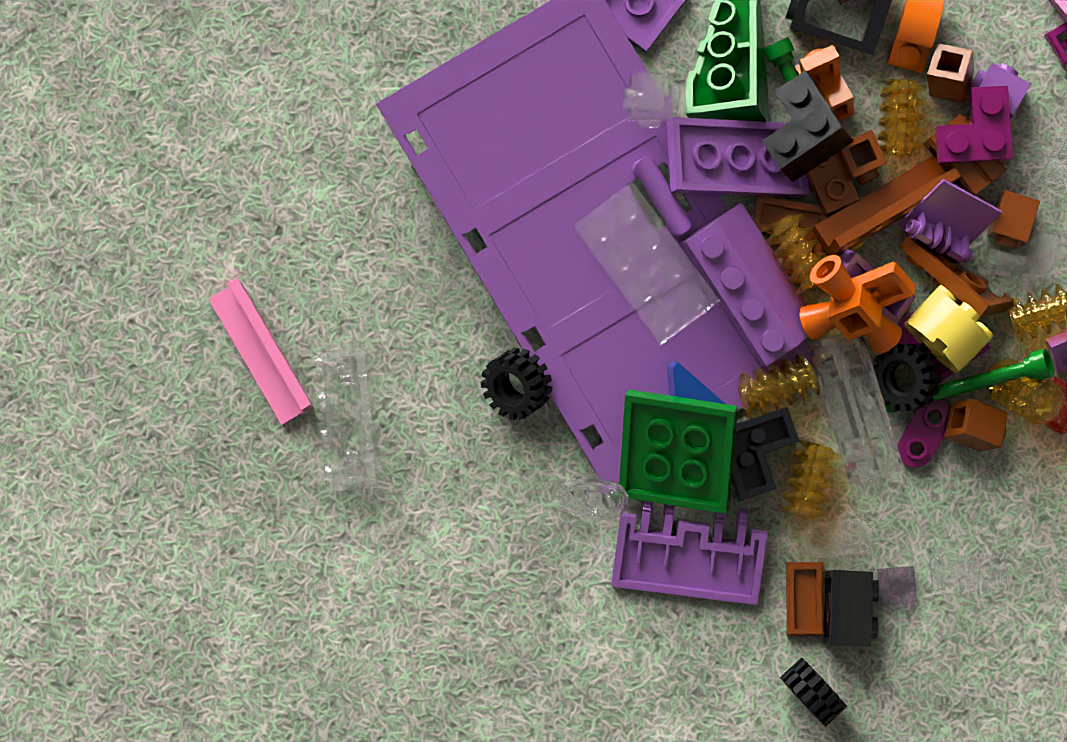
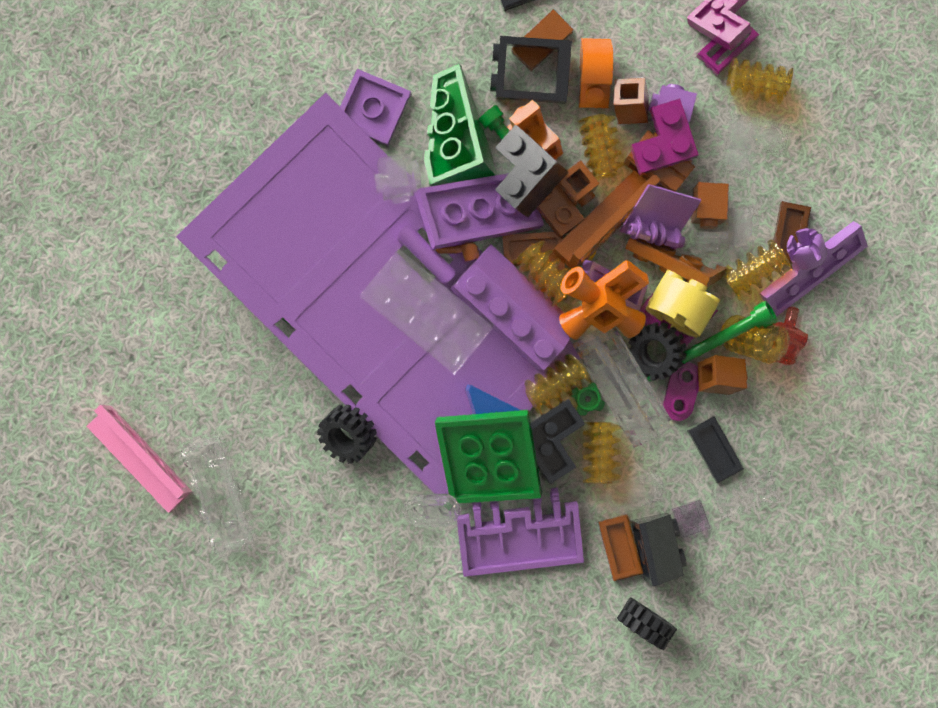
camera: 10 degrees left, 0 degrees up
(713, 203) = (469, 251): none -> dark orange hand
(819, 419) = (595, 403): none -> green plate
(946, 512) = (715, 449): none -> black tile

